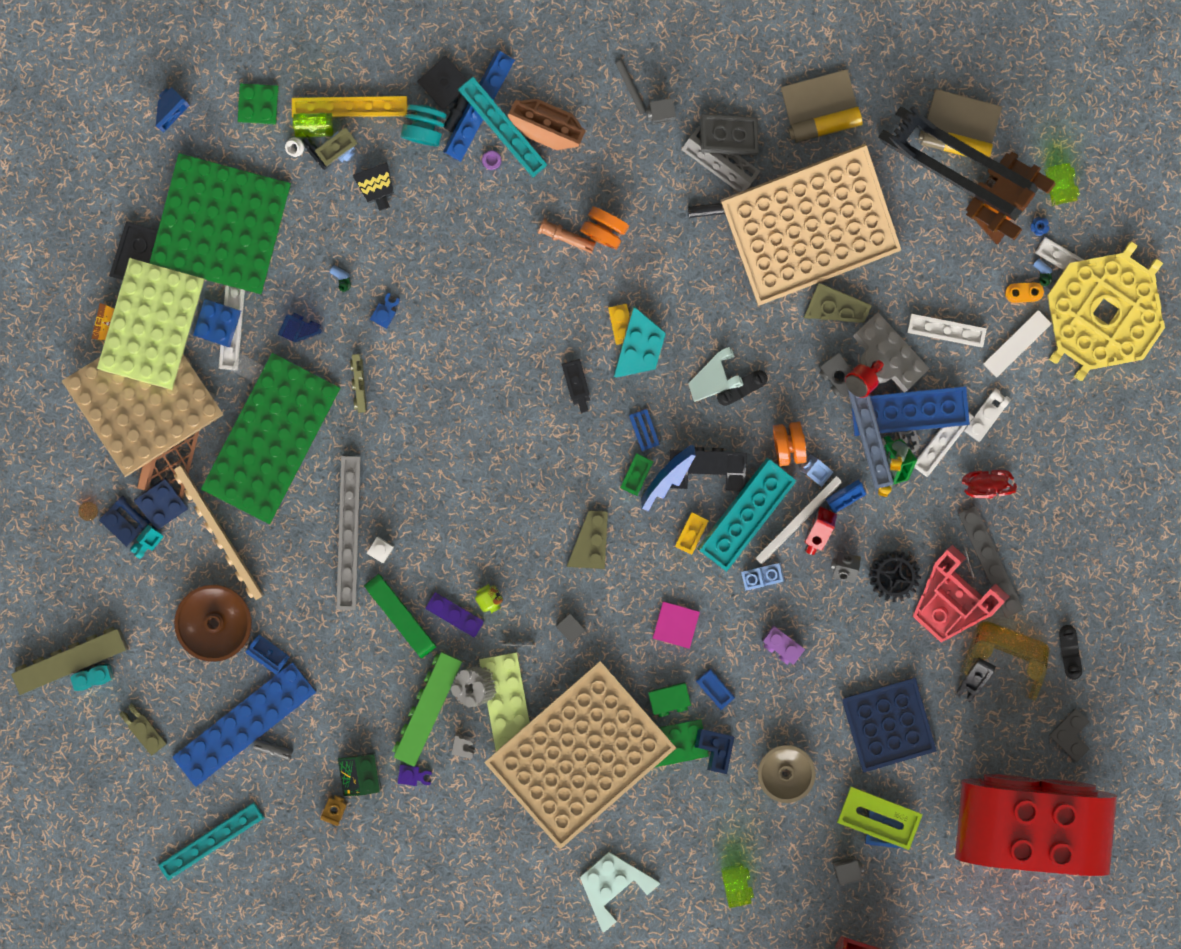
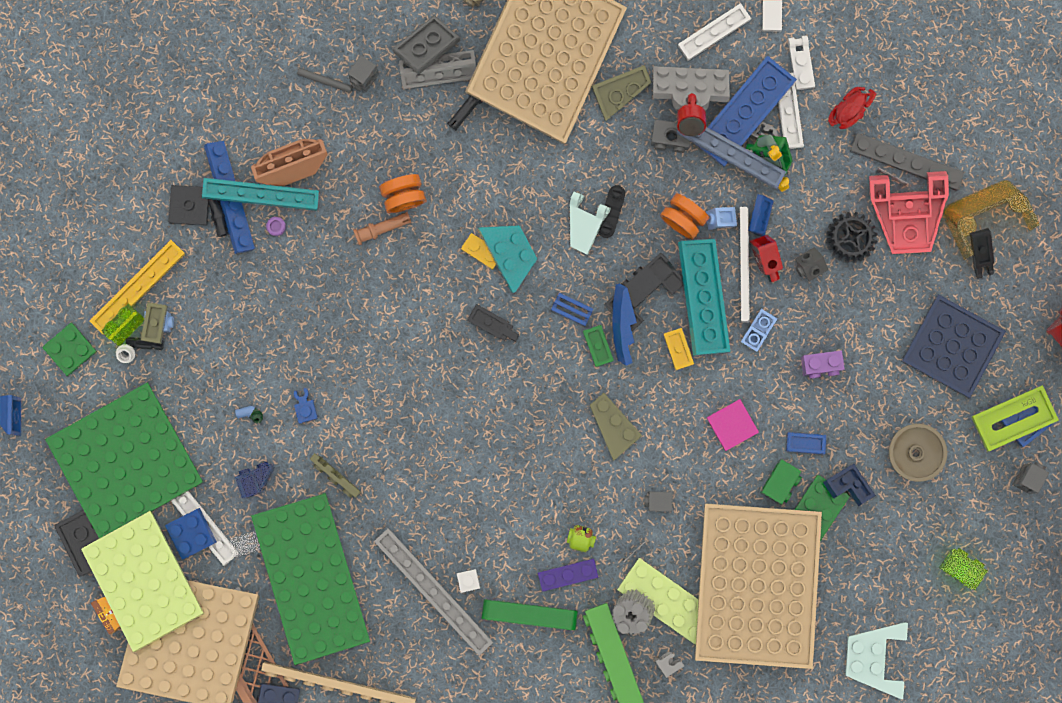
camera: 40 degrees left, 5 degrees down
(376, 185) = (210, 323): black torso -> none
(423, 125) = (201, 246): teal wheel -> none
(1070, 652) = (1027, 169): black piece -> none

